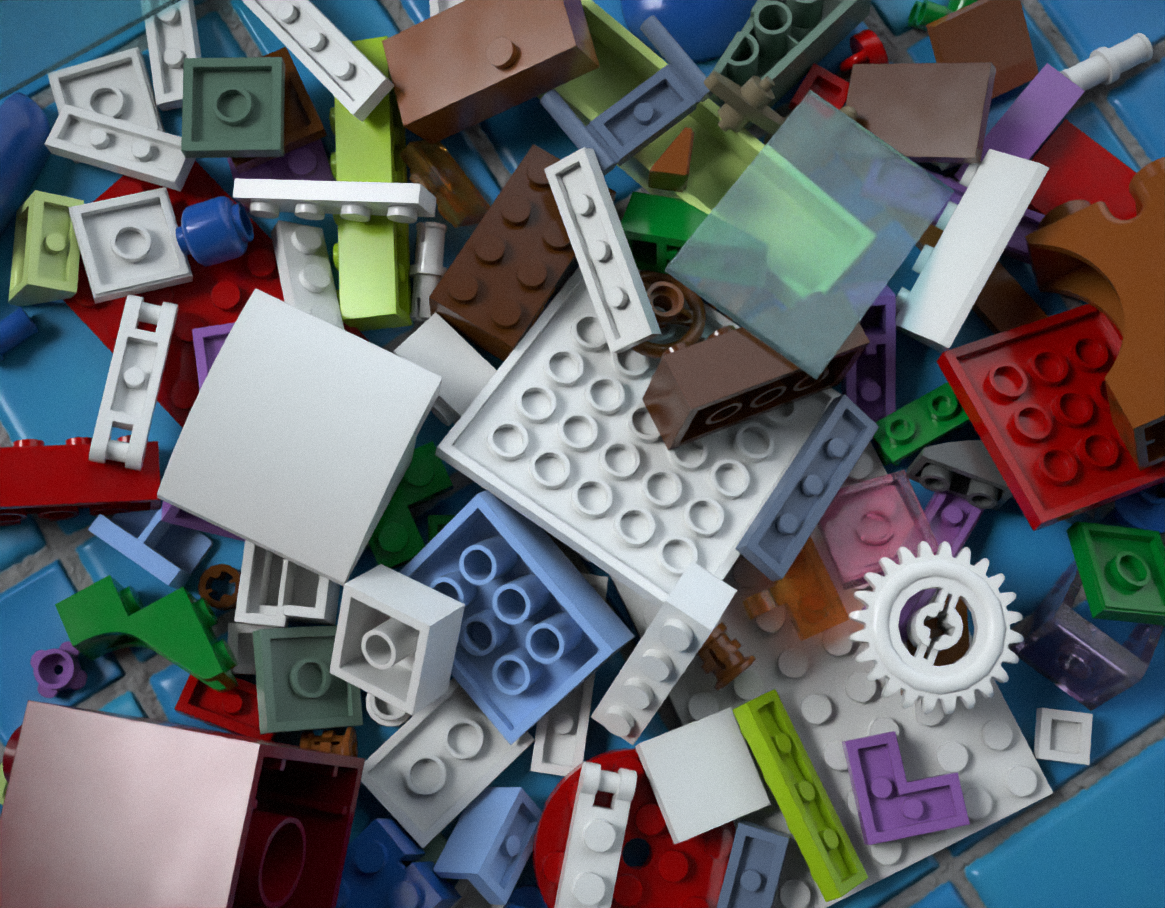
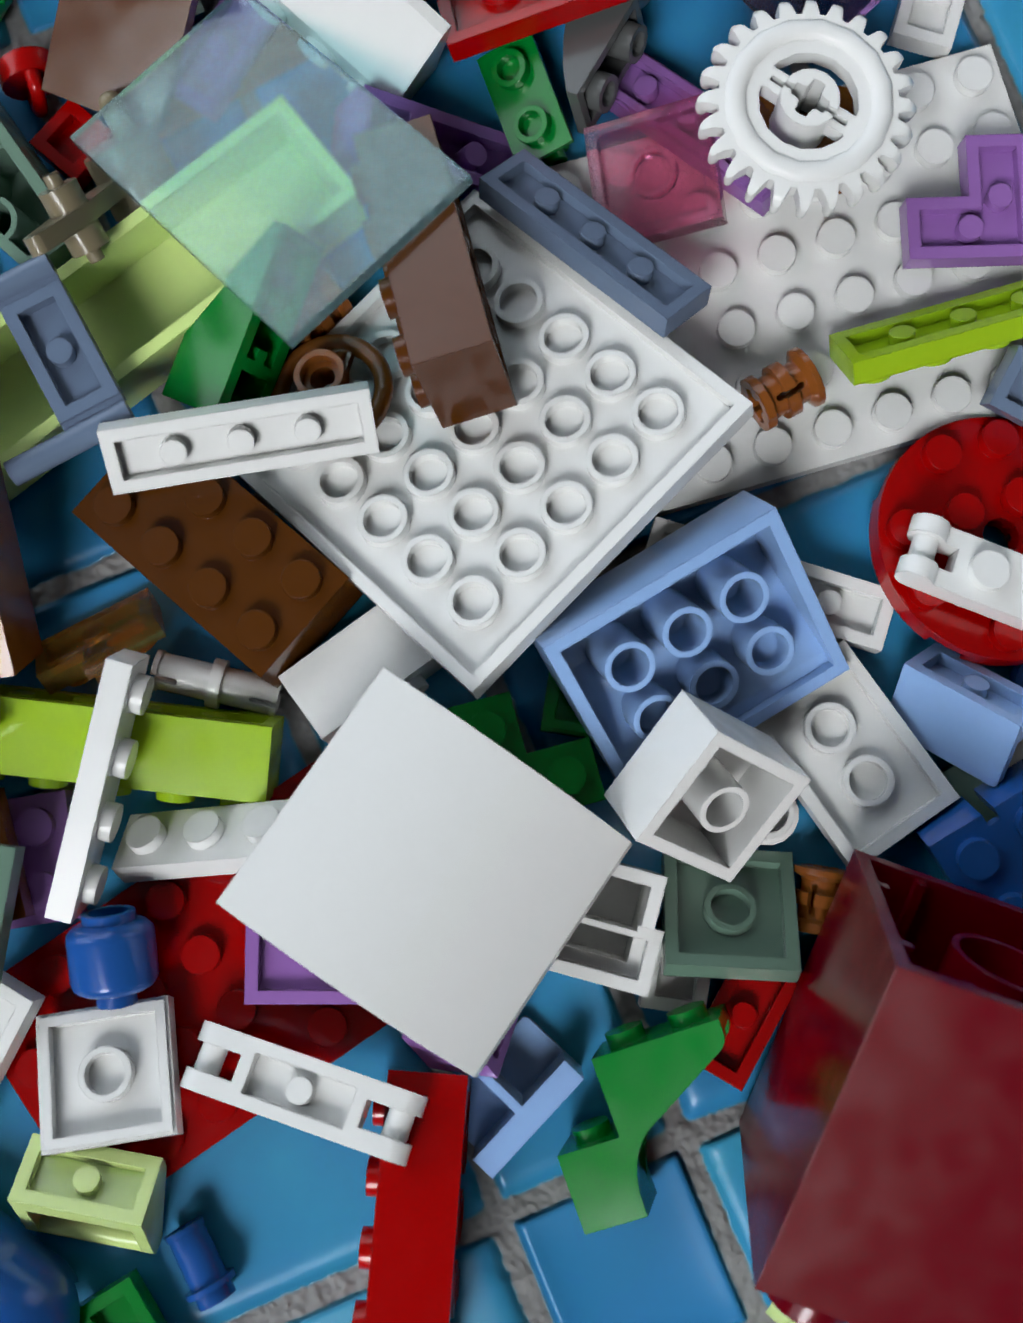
camera: 80 degrees left, 5 degrees up
(44, 667) = (666, 1257): medium lavender plate -> none
(219, 572) = (569, 1014): reddish brown bush -> none
(664, 652) = (783, 441): white brick -> none
(673, 166) = (142, 320): dark orange slope -> none
(702, 775) = (925, 438): white tile -> none
(806, 595) = (738, 271): clear orange plate -> none

